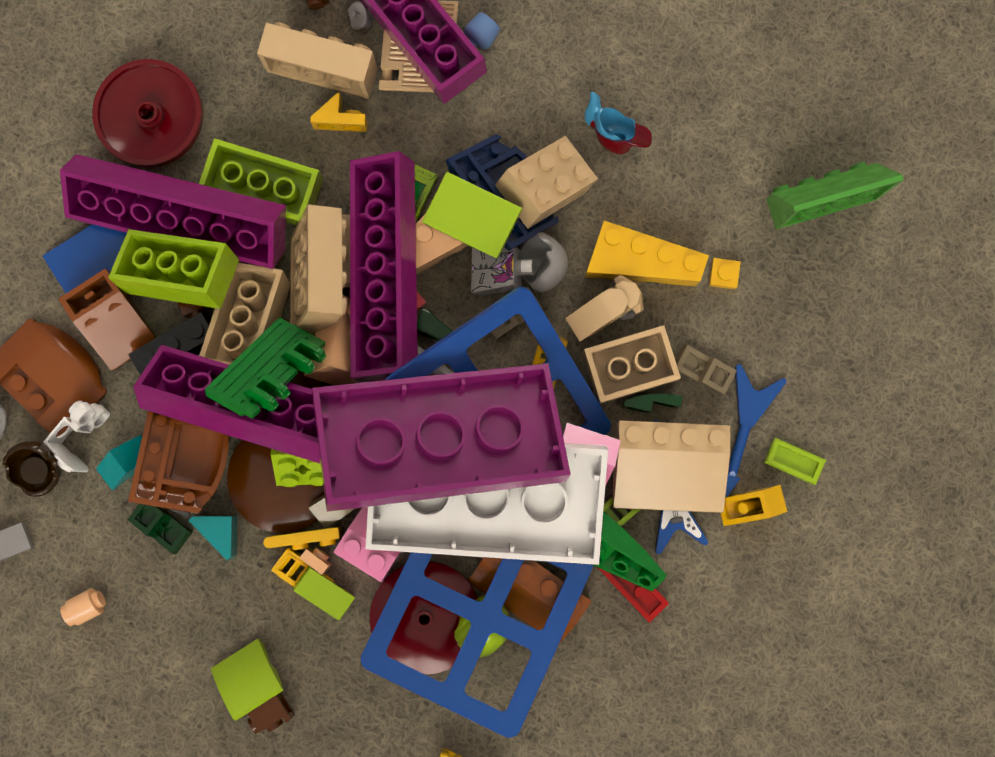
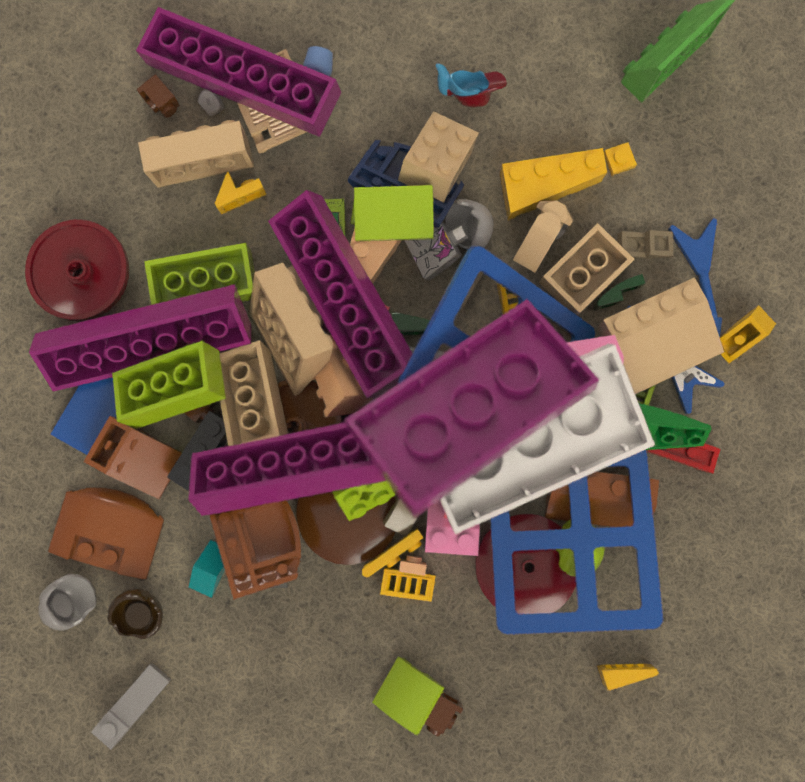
camera: 20 degrees left, 0 degrees up
(82, 419) = (157, 551): white piece -> none
(83, 607) = (239, 707): light nougat brick -> none
(160, 526) = (268, 606): dark green slope -> none
(219, 532) = (319, 585): teal slope -> none
(266, 368) = (293, 427): green hinge -> none
(323, 593) = (433, 590): lime tile -> none
(794, 461) = (757, 281): lime tile -> none

